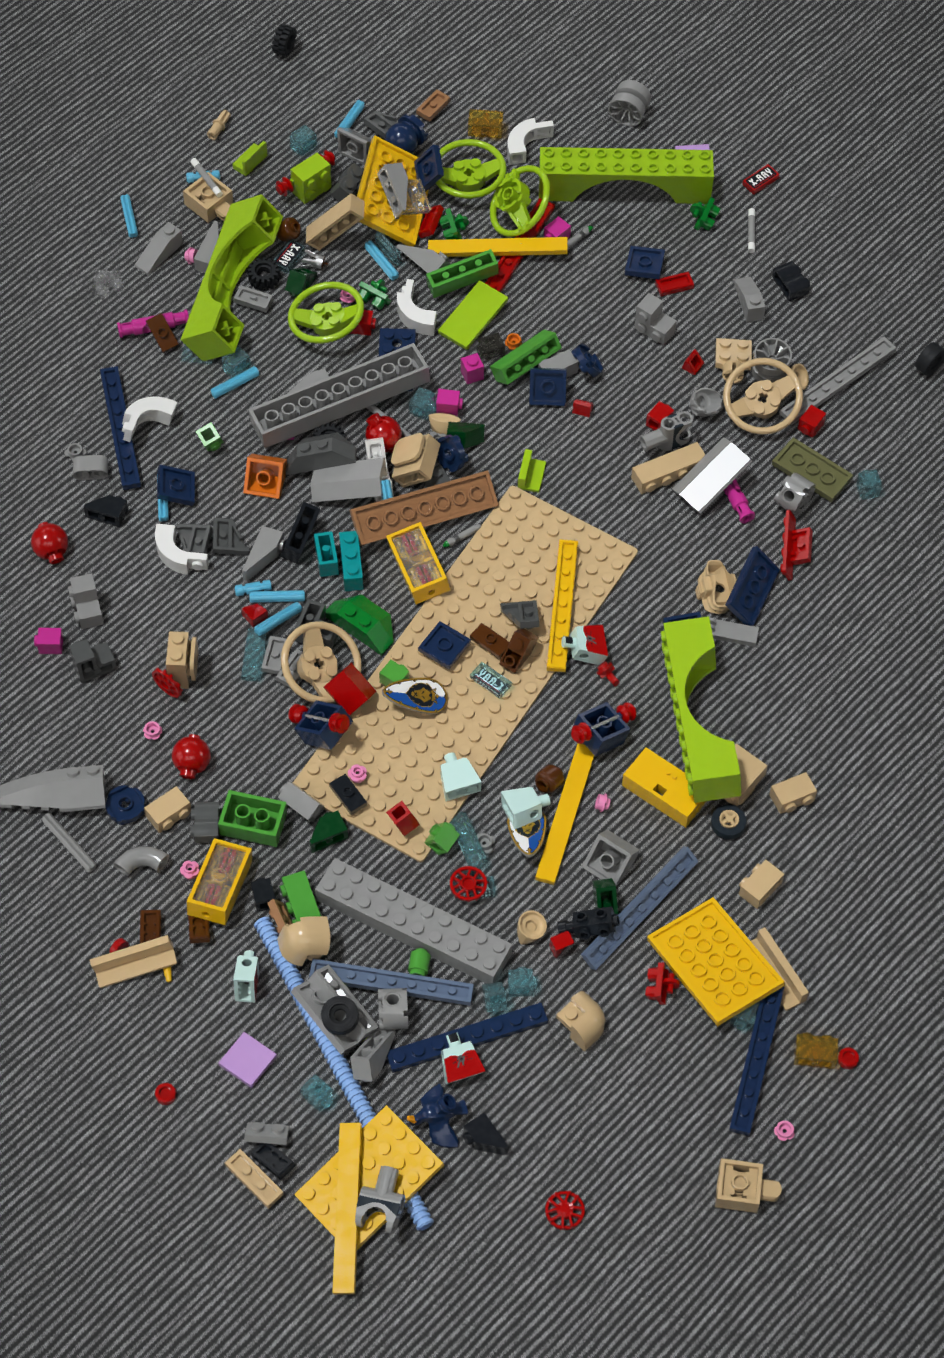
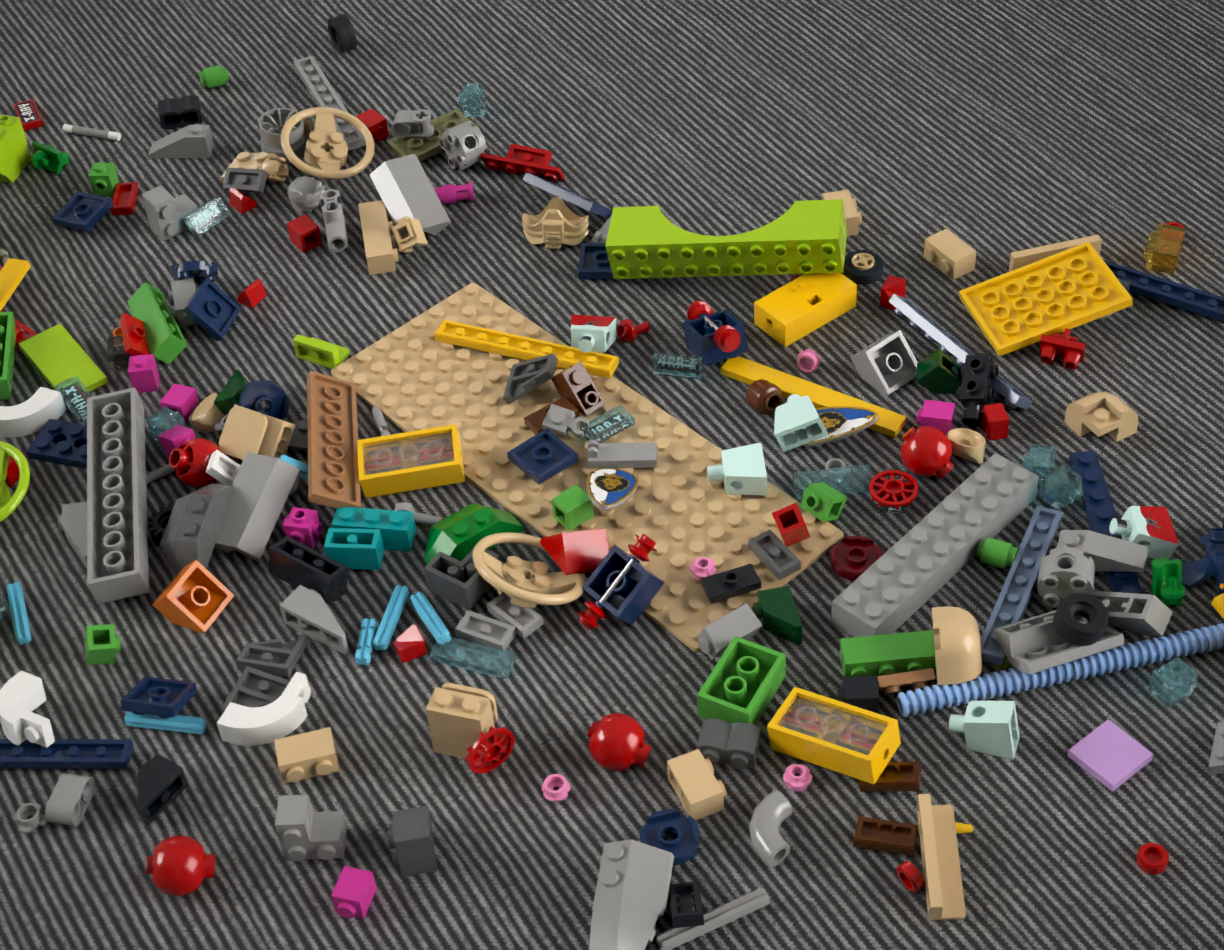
camera: 70 degrees left, 15 degrees down
(73, 823) = (686, 905): none -> black plate
(148, 583) = (306, 755): none -> tan brick
(340, 517) = (303, 526): none -> dark pink brick
(371, 583) = (418, 517): none -> light grey bar
(377, 816) = (774, 554): none -> dark grey plate
(399, 871) = (854, 556): none -> dark red tile
(405, 414) = (174, 438): none -> dark pink brick
(405, 1077) = (1168, 581): none -> green hips
(426, 1029) = (1106, 551): none -> light grey slope
(438, 338) = (75, 397): none -> clear light blue tile
(460, 696) = (622, 455): none -> light grey hinge
(477, 648) = (561, 420): none -> light grey plate
(500, 348) = (134, 335): none -> red plate
(507, 898) = (927, 452): none -> red brick
(555, 903) = (937, 415): none -> dark pink brick
(569, 710) = (677, 365): none -> clear light blue tile
(661, 345) = (206, 216): none -> clear light blue tile
(669, 488) = (415, 231): none -> tan window
(686, 260) = (103, 178): none -> bright green brick
(700, 848) = (892, 286): none -> red slope
(708, 355) = (245, 180): none -> dark grey plate
(811, 448) = (412, 123): none -> light grey piece
(846, 287) = (213, 76): none -> bright green brick

